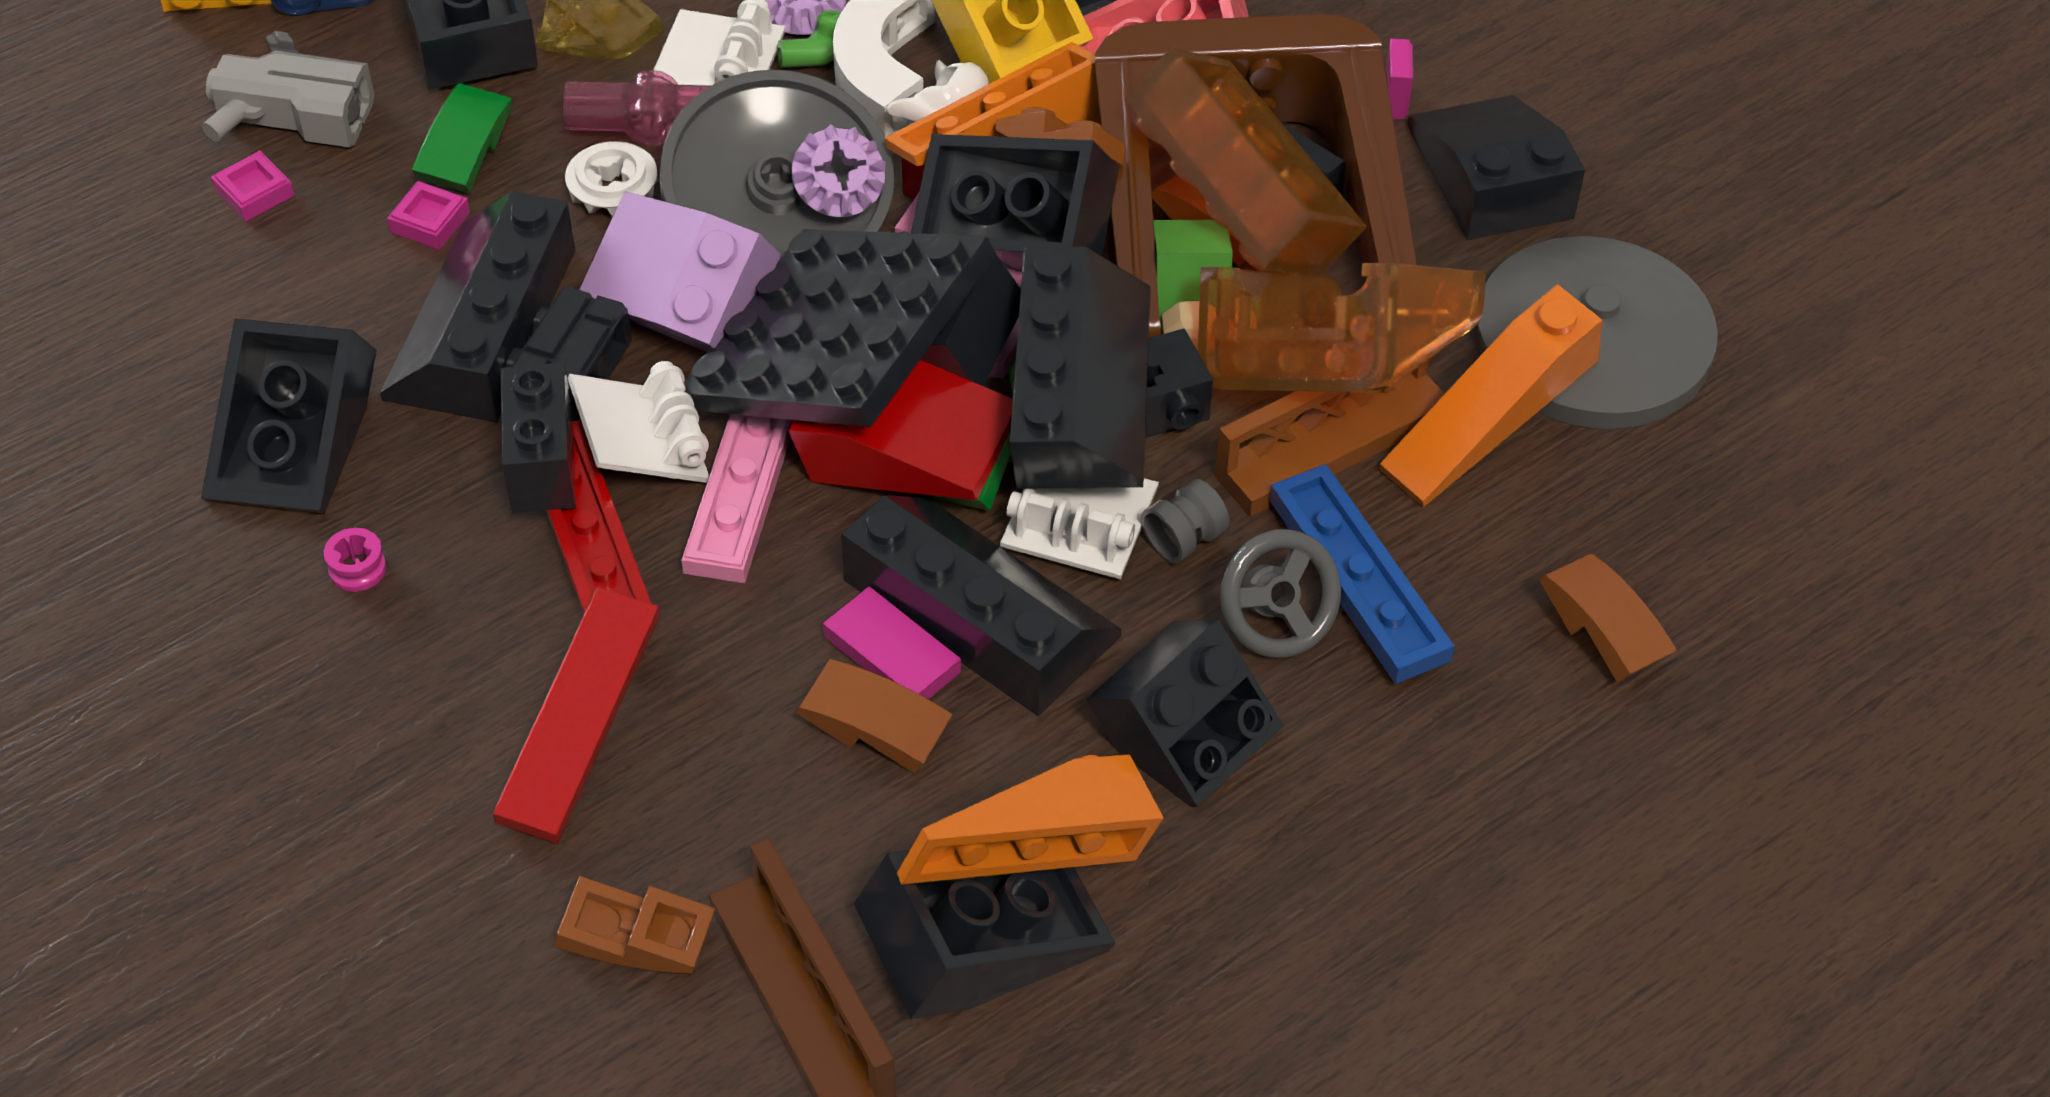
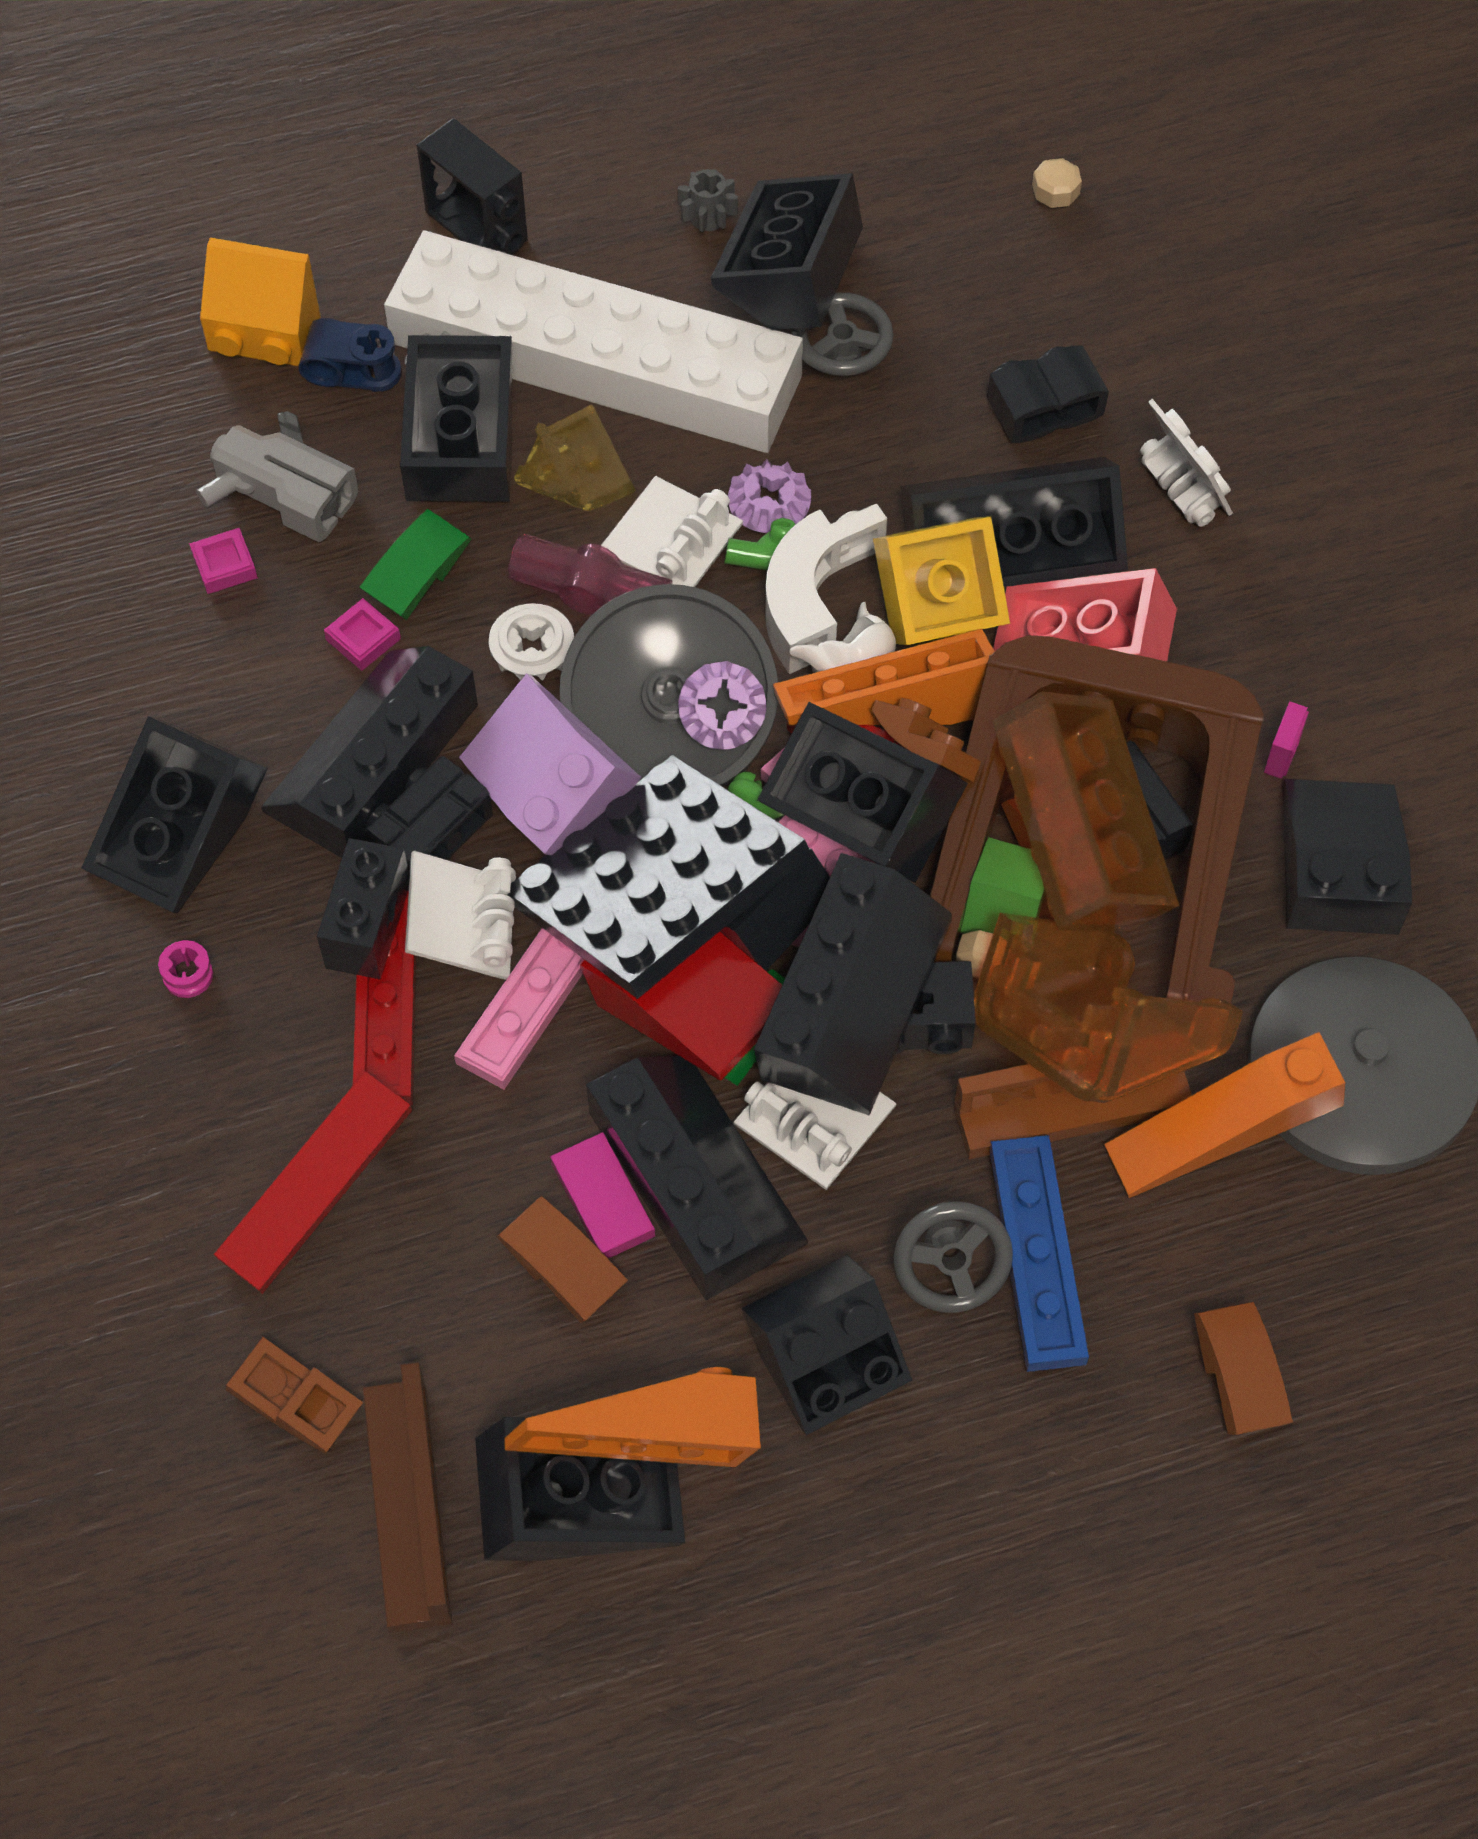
camera: 20 degrees right, 10 degrees up
(1189, 518) = (906, 1151): dark grey wheel -> none

